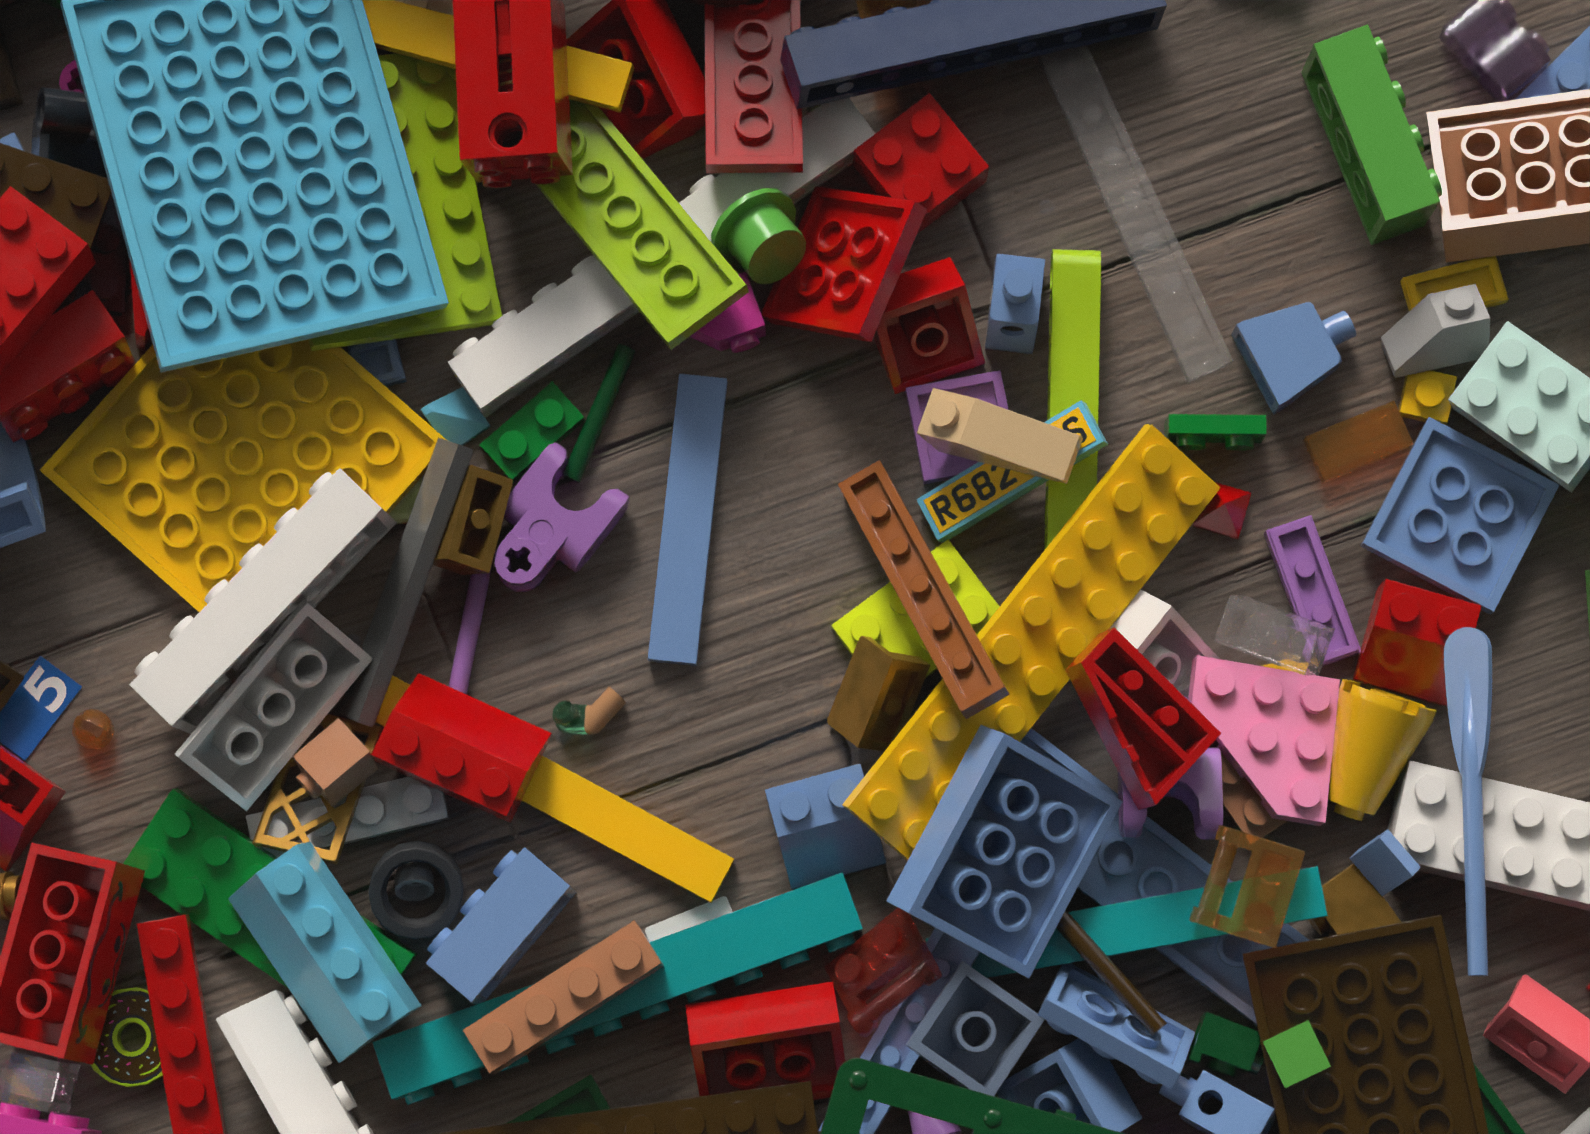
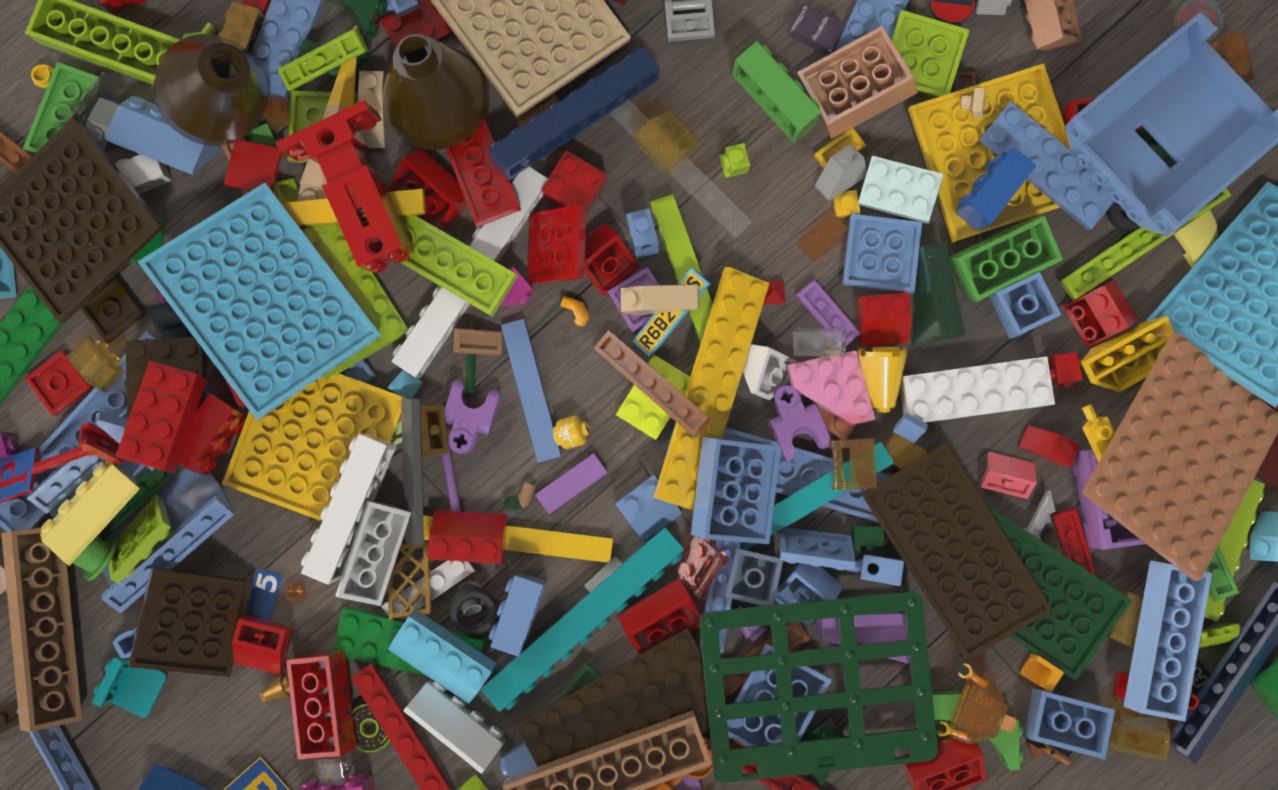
camera: 20 degrees left, 5 degrees up
(334, 763) = (411, 568): nougat brick -> none
(529, 431) = (442, 377): green plate -> none
(563, 998) = (560, 637): nougat brick -> none
(623, 388) = (477, 342): none -> medium nougat tile
(696, 724) = (571, 483): none -> medium lavender tile
(733, 625) = (571, 432): none -> yellow head
(760, 235) = (513, 247): bright green piece -> none
(838, 397) = (578, 308): none -> light orange arm
(876, 695) = (649, 439): pearl gold panel -> none
(1110, 974) = (805, 527): dark brown bar -> none
(1126, 149) = (666, 142): none -> clear yellow slope
(1139, 717) = (775, 406): red wedge -> none
(1196, 430) = (766, 254): green plate -> none
(1244, 234) = (735, 161): none -> lime brick
(1291, 350) = (777, 206): medium blue torso -> none
(1296, 1054) = (903, 531): bright green tile -> none
(1469, 712) = (921, 339): medium blue piece -> none
(1536, 633) = (935, 298): none -> clear green wedge

